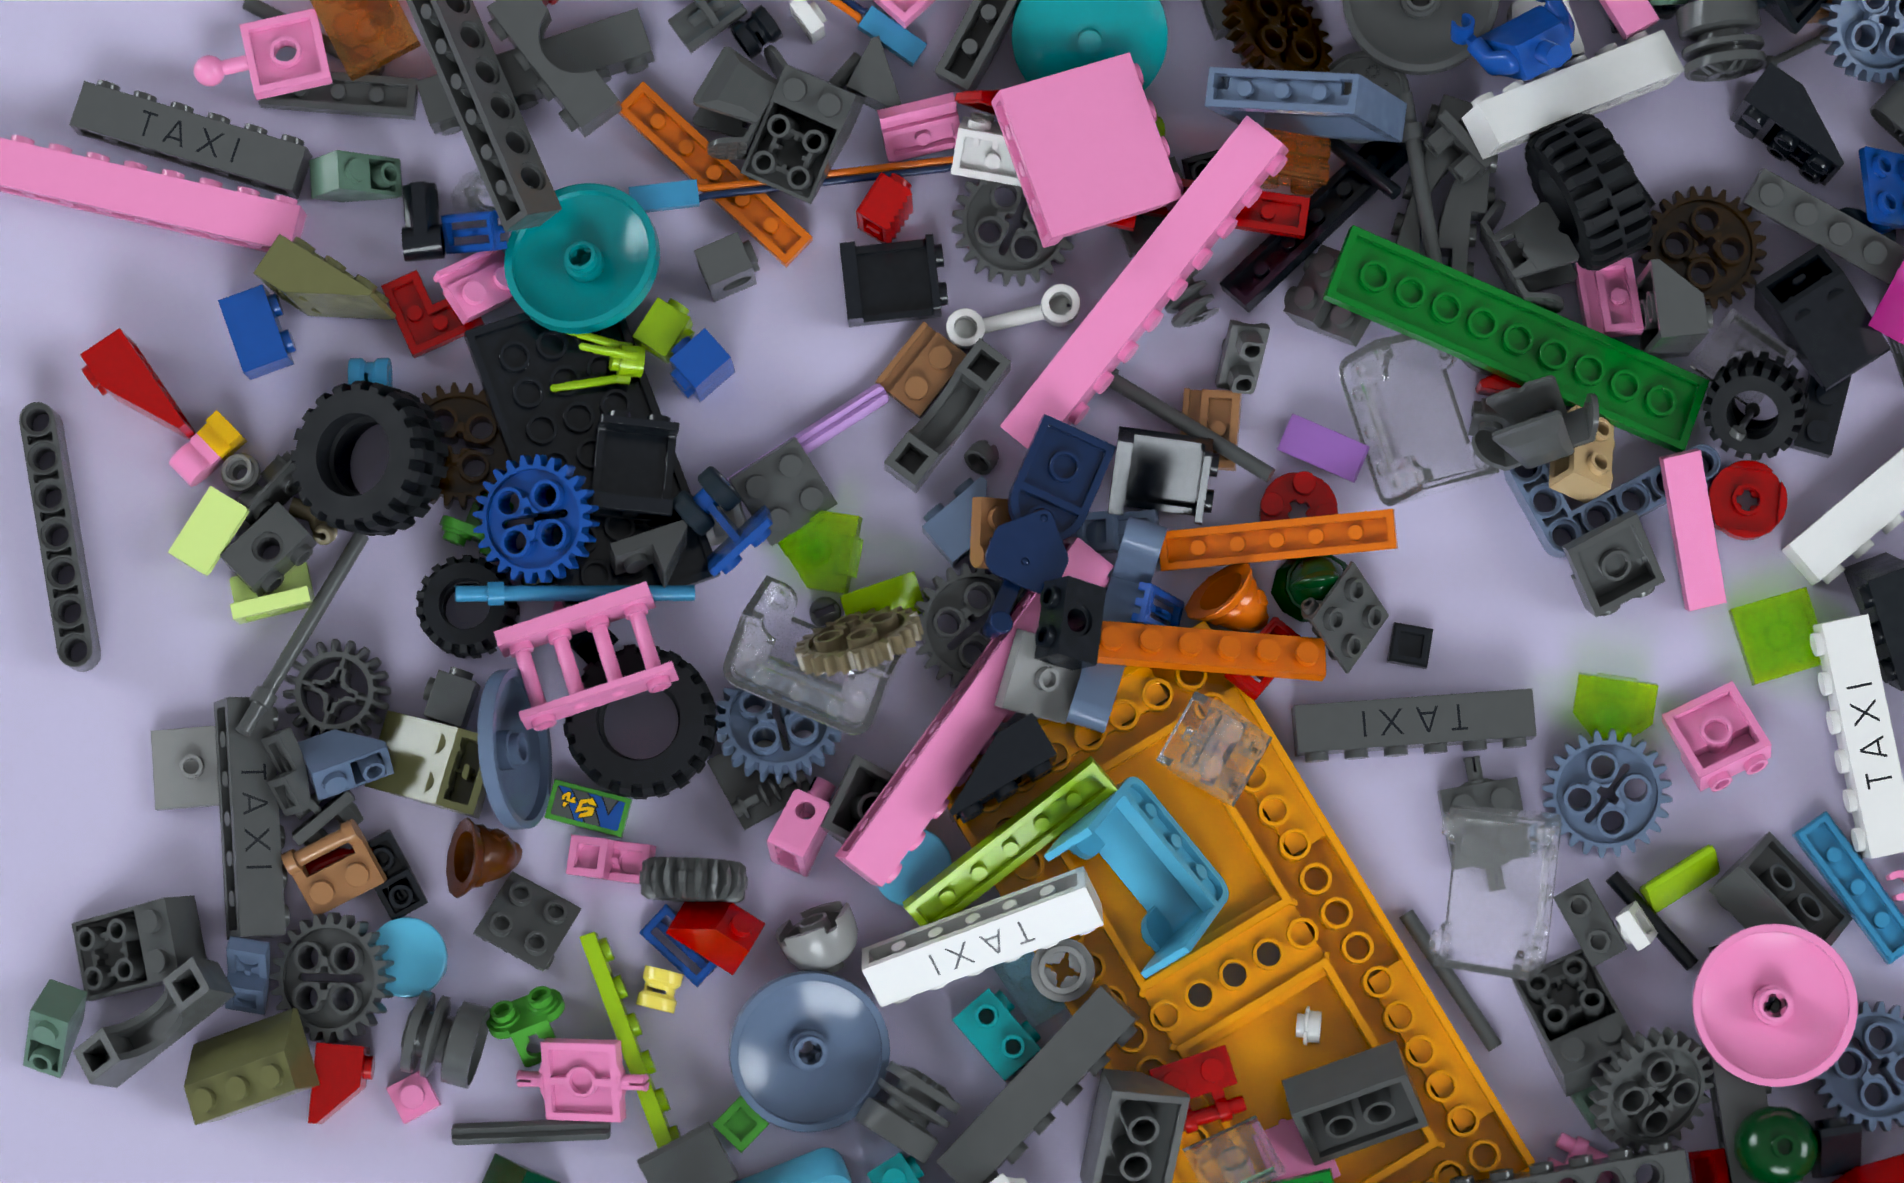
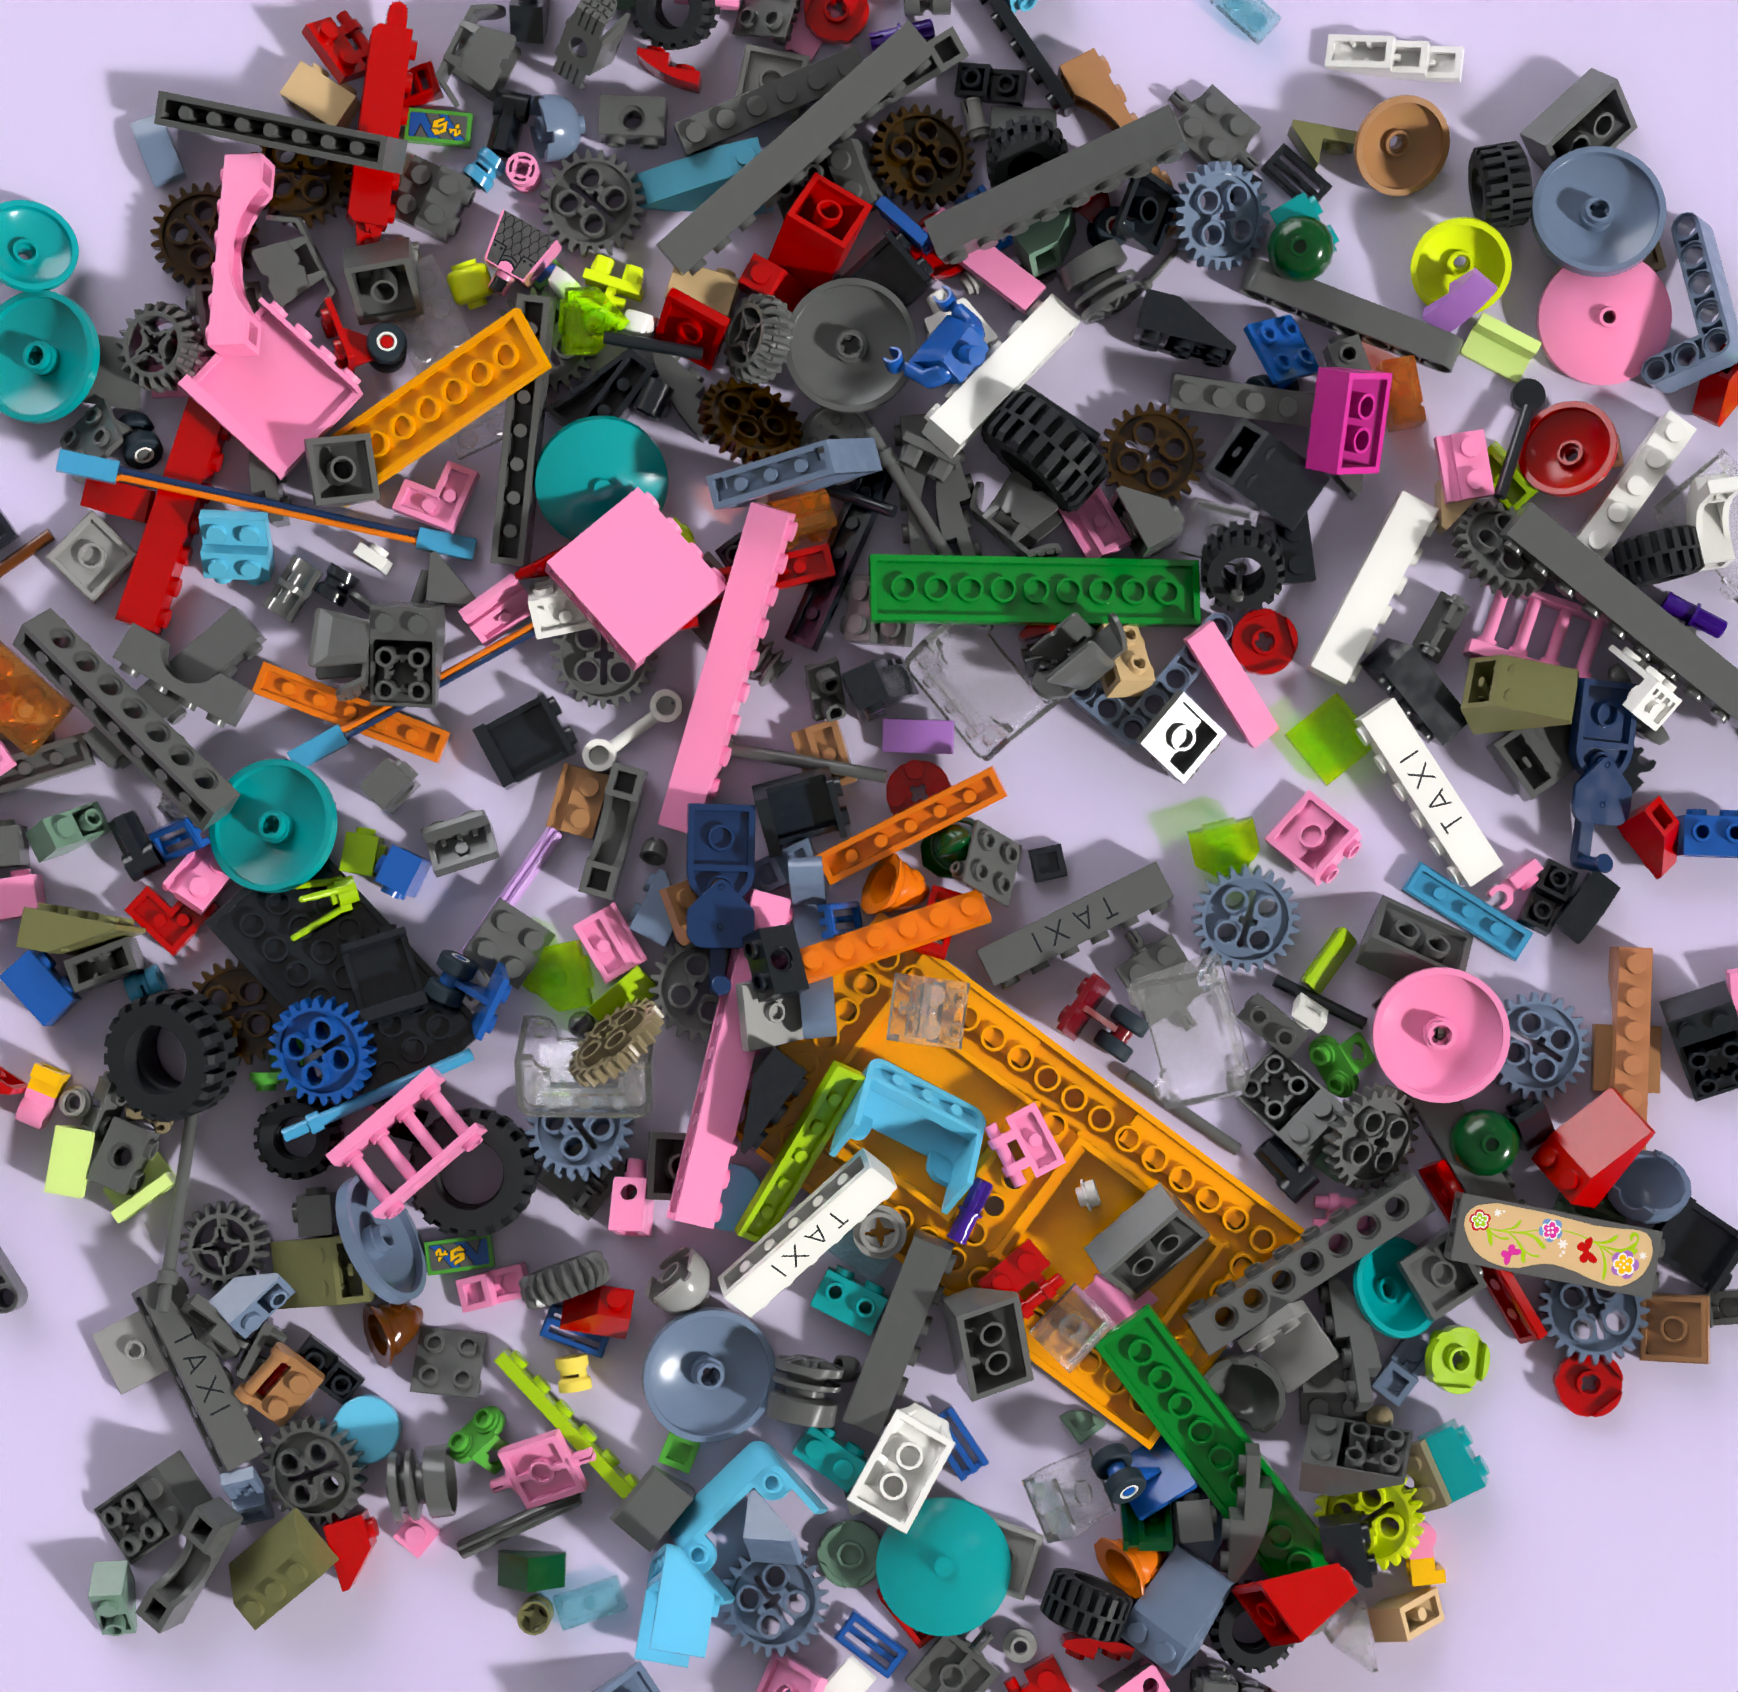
camera: 20 degrees left, 5 degrees up
(336, 335) = (105, 964): none -> dark grey brick
(658, 546) = (429, 1029): dark grey slope -> none
(775, 360) = (460, 842): none -> dark grey bracket
(885, 208) = (496, 686): red brick -> none
(894, 536) = (610, 942): none -> bright pink plate
(965, 1114) = (850, 1367): none -> dark grey hinge
(1172, 987) = (970, 1211): none -> dark purple axle
(1274, 936) = (1034, 1140): none -> bright pink plate
(1300, 375) = (878, 686): none -> black wedge
(1386, 818) = (1075, 1017): none -> dark red plate
(1544, 1098) = (1291, 1175): none -> black piece
(1644, 994) = (1337, 1064): none -> bright green bracket

